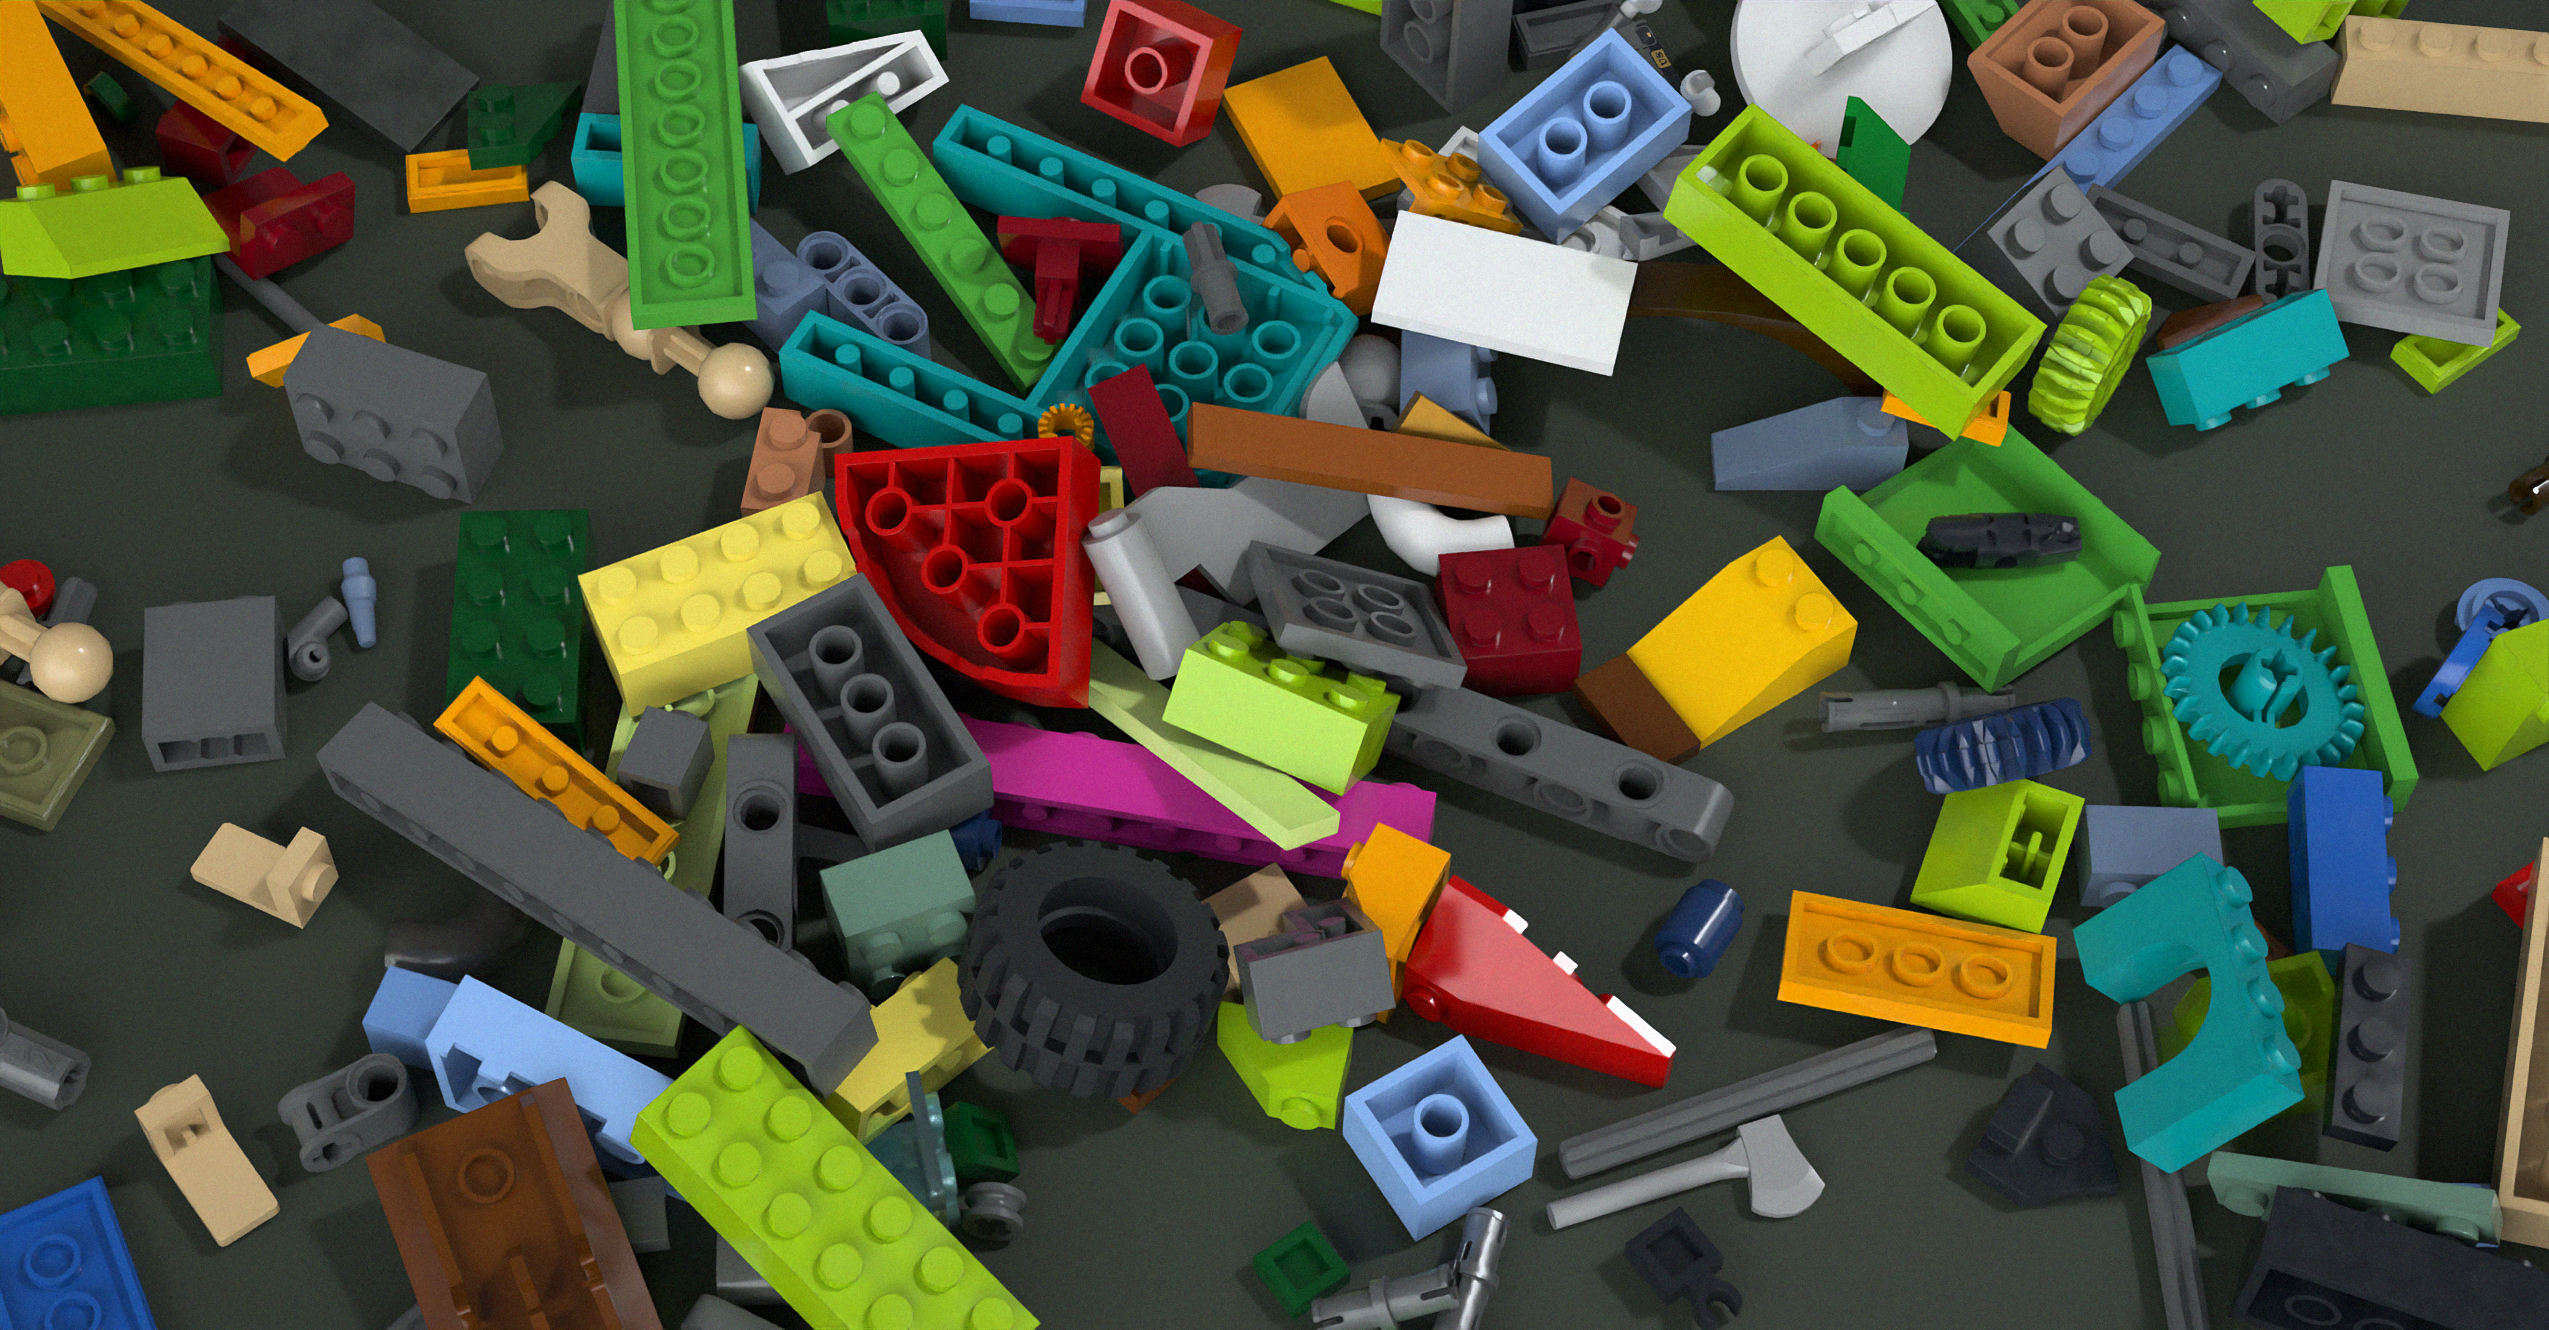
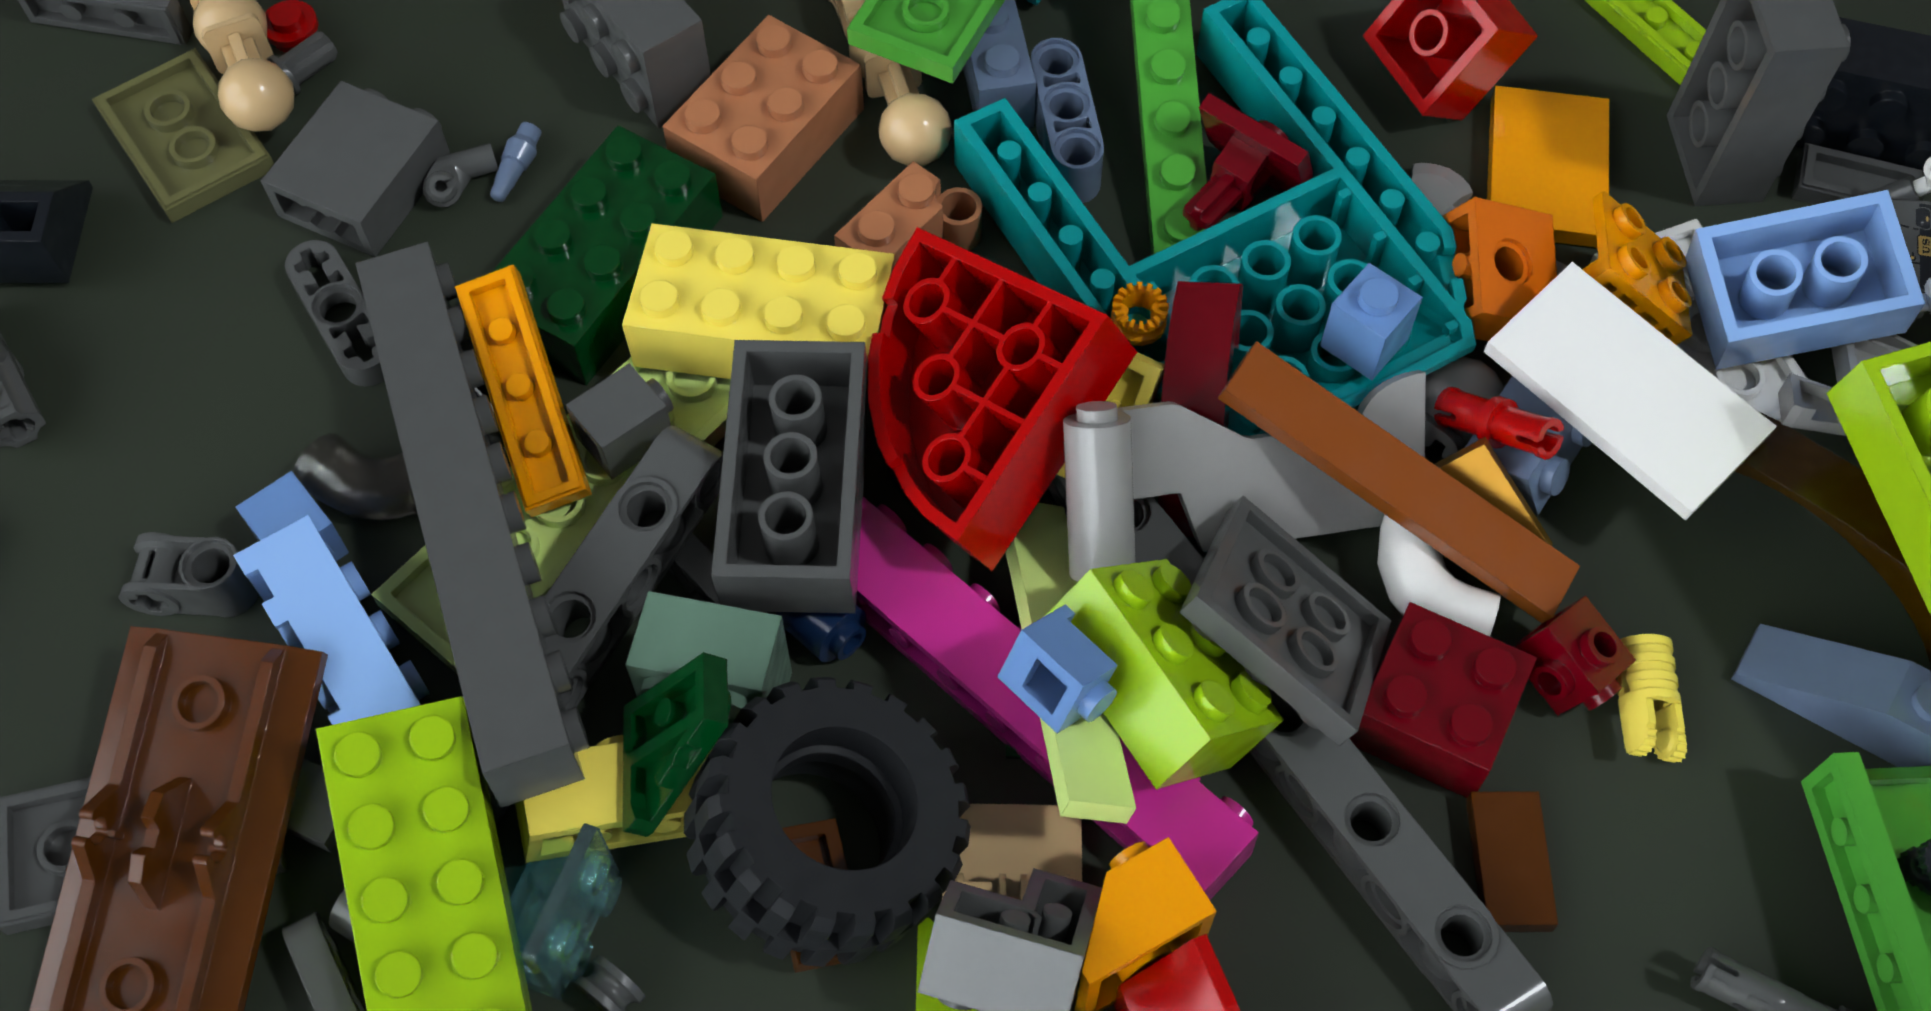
camera: 35 degrees right, 5 degrees up
(206, 1160) = (60, 551): tan bracket -> none
(267, 875) = (281, 341): tan bracket -> none
(285, 796) = (319, 300): none -> dark grey beam
(585, 433) = (767, 115): none -> nougat brick
(927, 968) = (669, 737): none -> dark green wing
(980, 1143) = (641, 917): dark green plate -> none
(1212, 743) = (1059, 671): none -> medium blue brick
(1214, 279) = (1366, 235): dark grey axle -> none
(1267, 341) = (1370, 321): none -> medium blue brick
(1418, 372) = (1499, 422): none -> red pin
(1666, 536) = (1651, 701): none -> light yellow hinge
(1746, 642) = (1665, 851): yellow slope -> none

